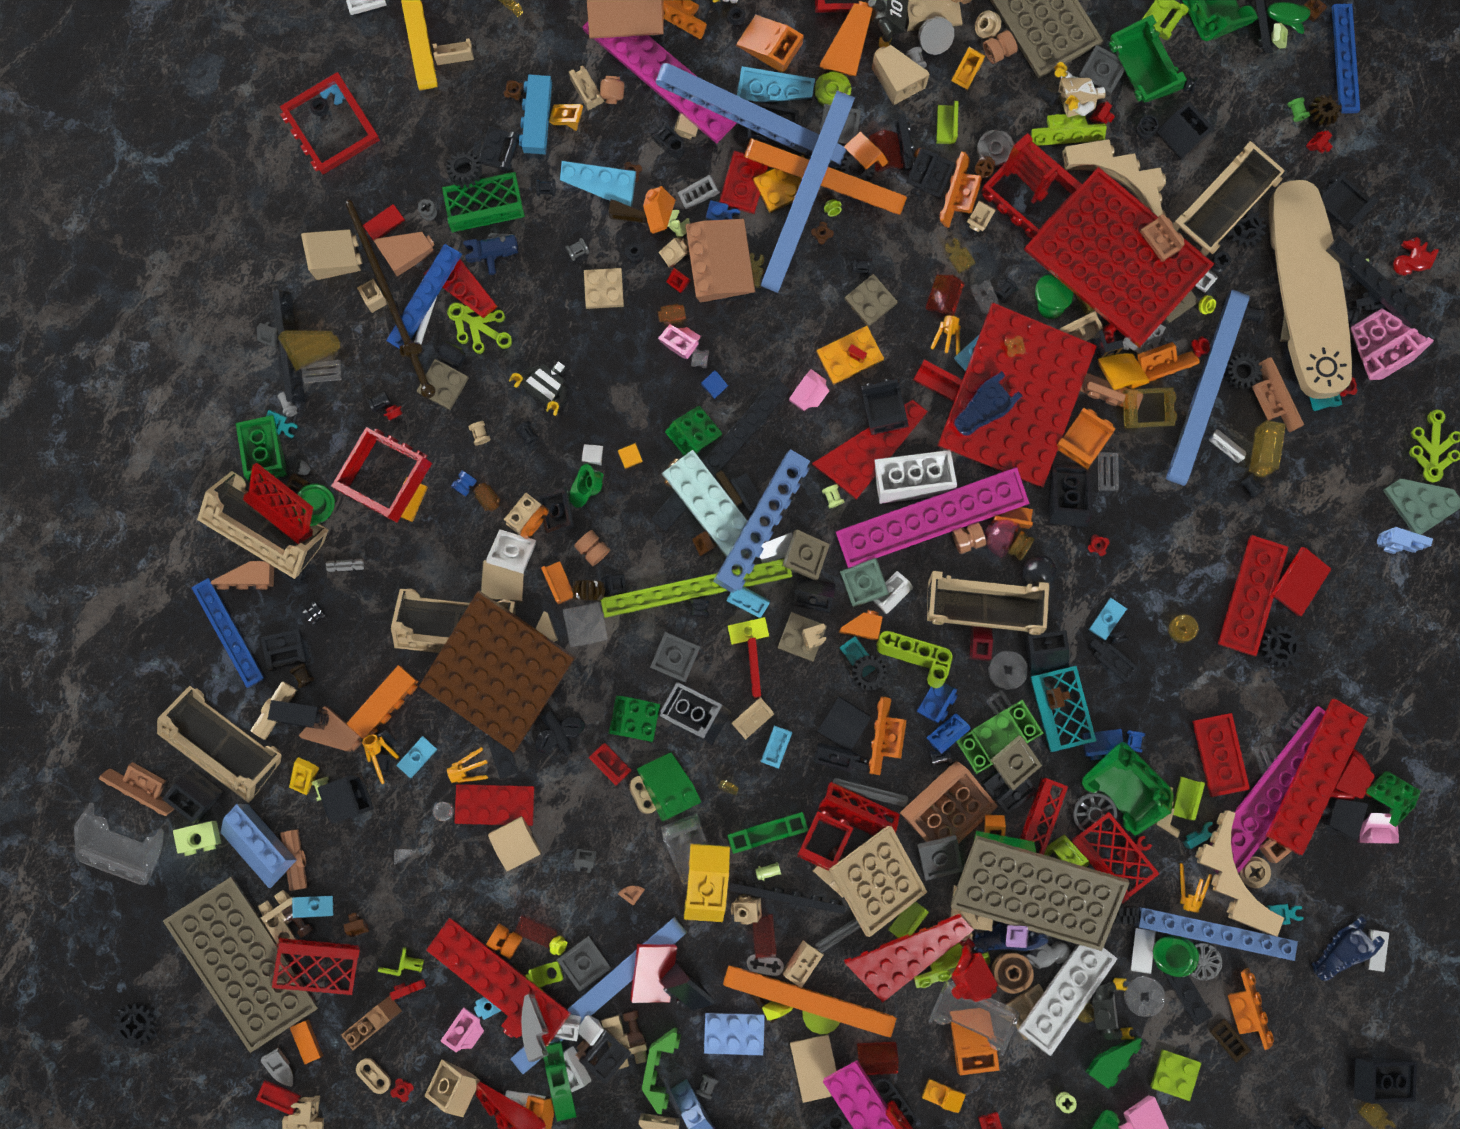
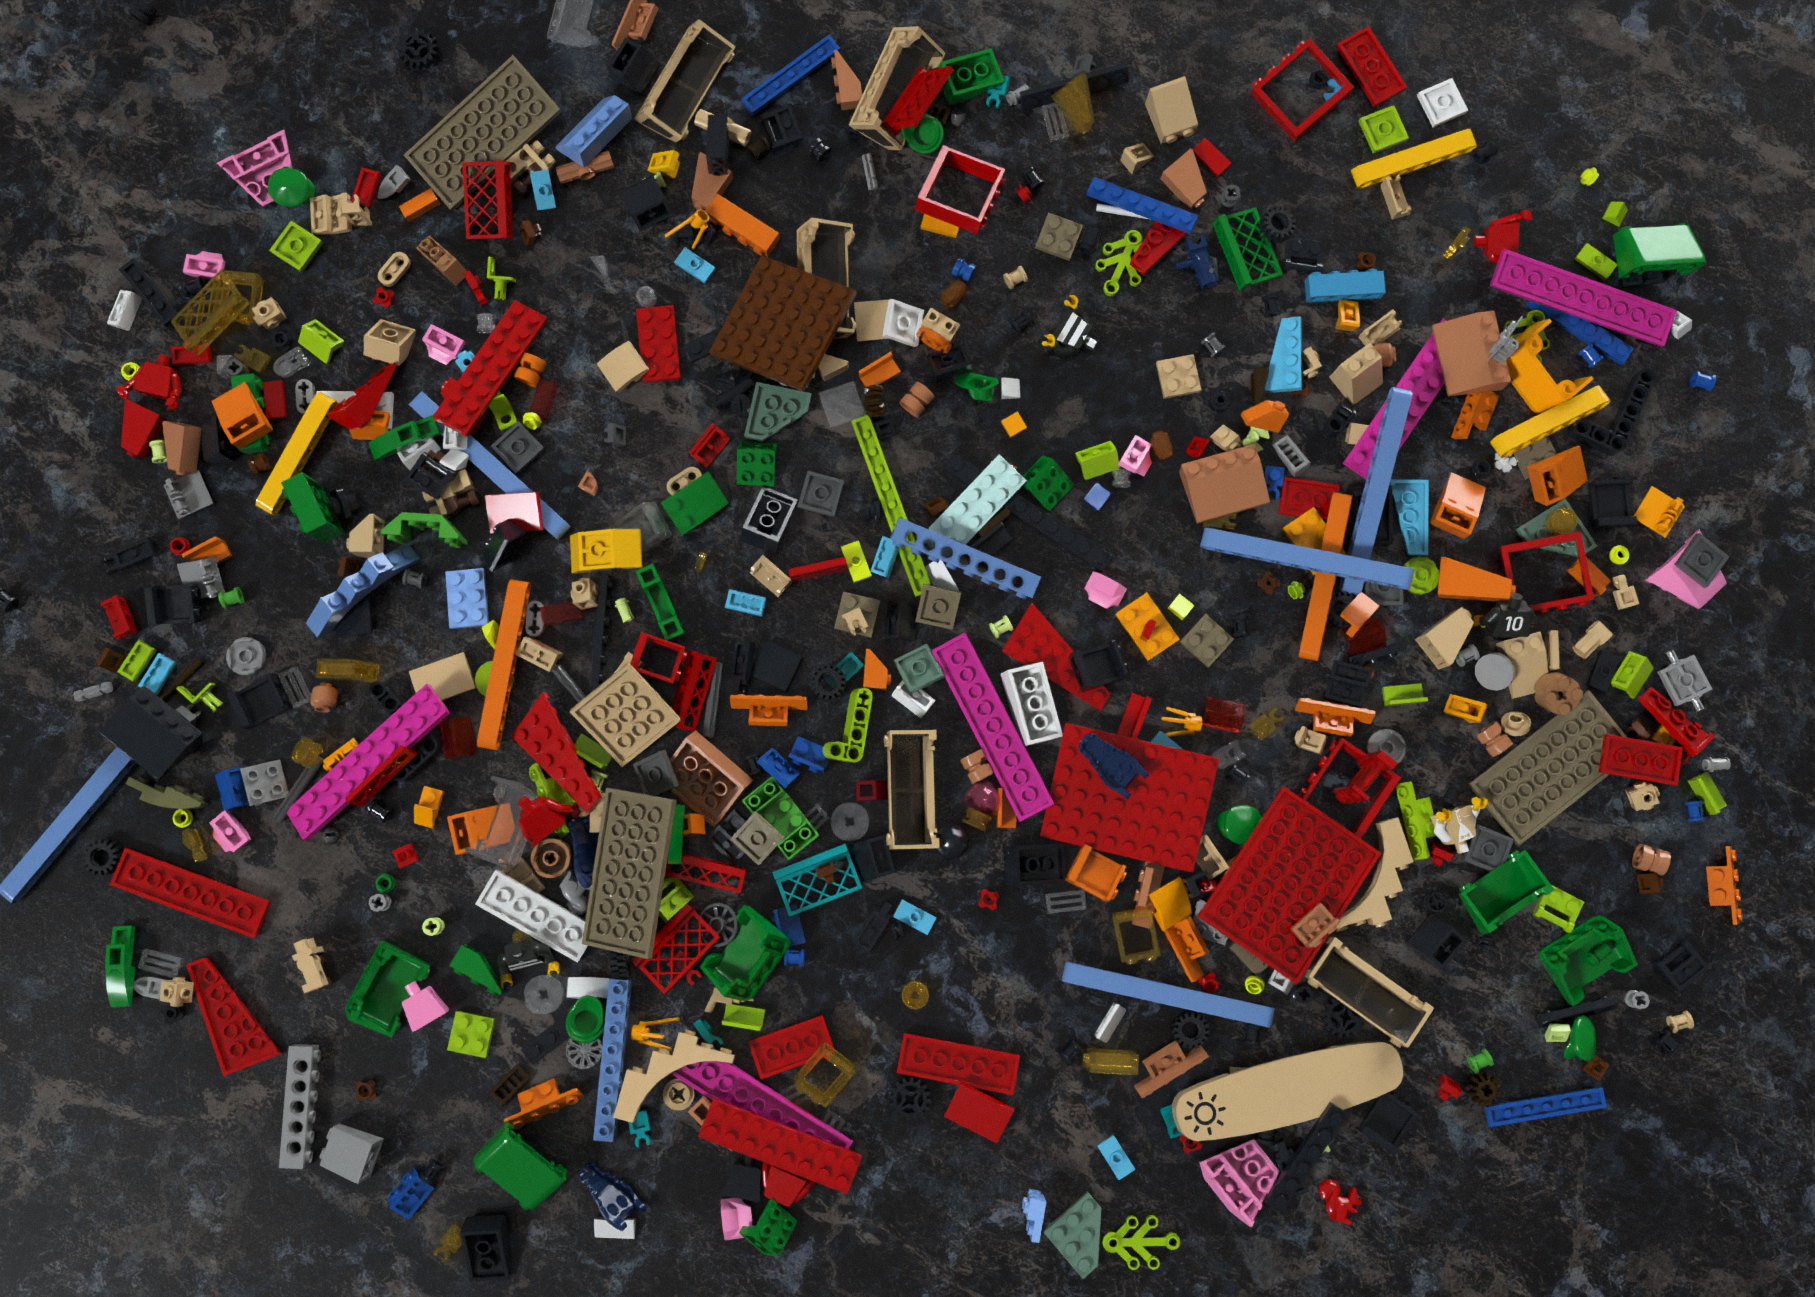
camera: 85 degrees right, 0 degrees up
(185, 838) = (590, 67): yellowish green brick -> none
(314, 53) = (1371, 66): none -> red plate
(381, 52) = (1383, 129): none -> lime plate
(409, 348) = (1088, 198): dark brown bar -> none
(447, 983) = (485, 323): none -> clear wheel
(457, 773) = (684, 305): light orange plant -> none
(533, 1029) = (445, 400): light grey slope -> none
(582, 695) = (774, 410): none -> sand green plate
(609, 157) = (1312, 362): none -> tan bracket
(628, 114) = (1359, 374): none -> tan slope
(677, 378) = (1098, 460): none -> lime panel
(834, 320) = (1180, 606): none -> neon yellow slope
(935, 917) = (598, 779): none -> yellowish green bush
(983, 170) = (1360, 735): reddish brown wheel -> none
(1017, 936) = (585, 856): lavender plate -> none
(1018, 341) = (1182, 786): clear yellow plate -> none
(1252, 703) = (846, 1066): none -> clear yellow window
(1313, 1038) = (519, 1168): none -> green windscreen
(1354, 458) = (1115, 1157): none -> medium azure plate

